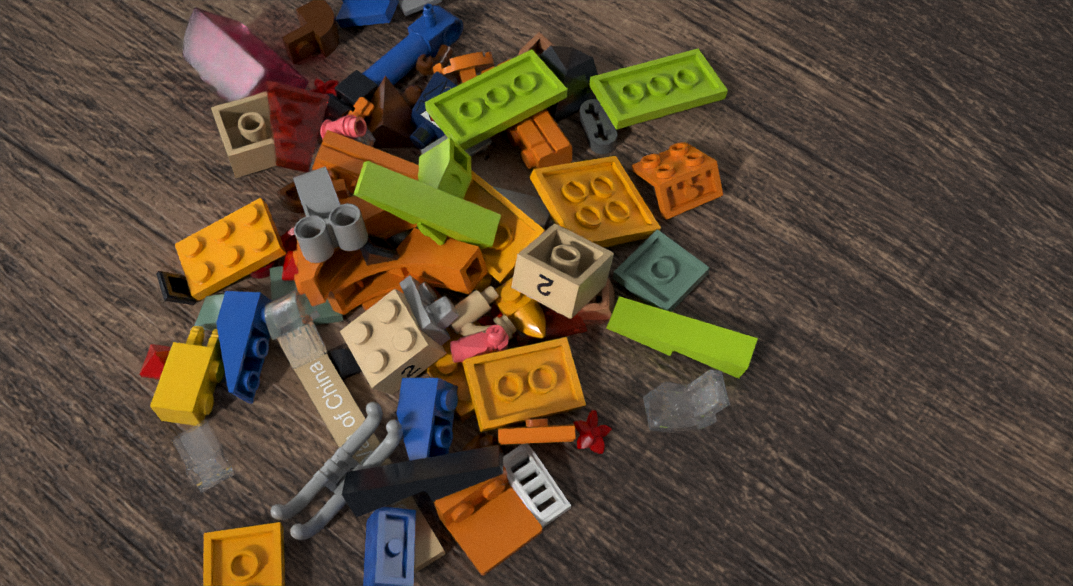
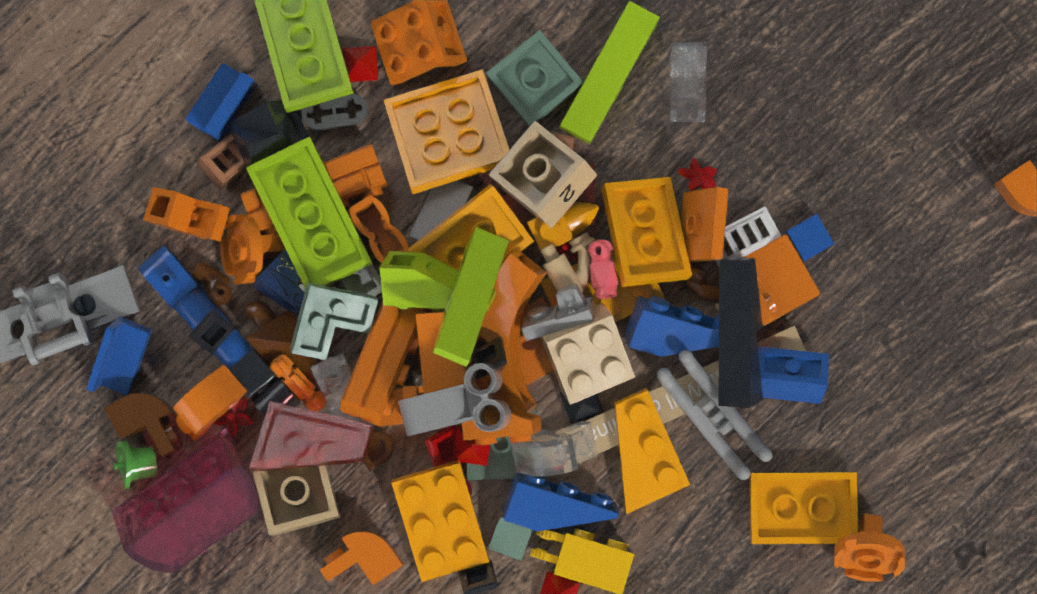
camera: 80 degrees left, 25 degrees up
(200, 199) = (369, 550): none -> orange brick
(203, 456) = (676, 544): clear brick -> none
(275, 25) = (135, 463): none -> bright green piece
(299, 418) = (646, 453): none -> light orange wing
(328, 59) = (207, 402): none -> orange brick
(347, 126) = (332, 384): coral arm -> none
(386, 47) = (211, 331): none -> black slope
(409, 116) = (324, 310): none -> plate
(489, 28) = (186, 214): none -> orange brick
(499, 158) = (376, 226): none -> orange brick
(543, 557) = (809, 238): none -> blue tile
(604, 52) = (221, 102): none -> blue panel
(645, 140) = (361, 63): none -> red slope

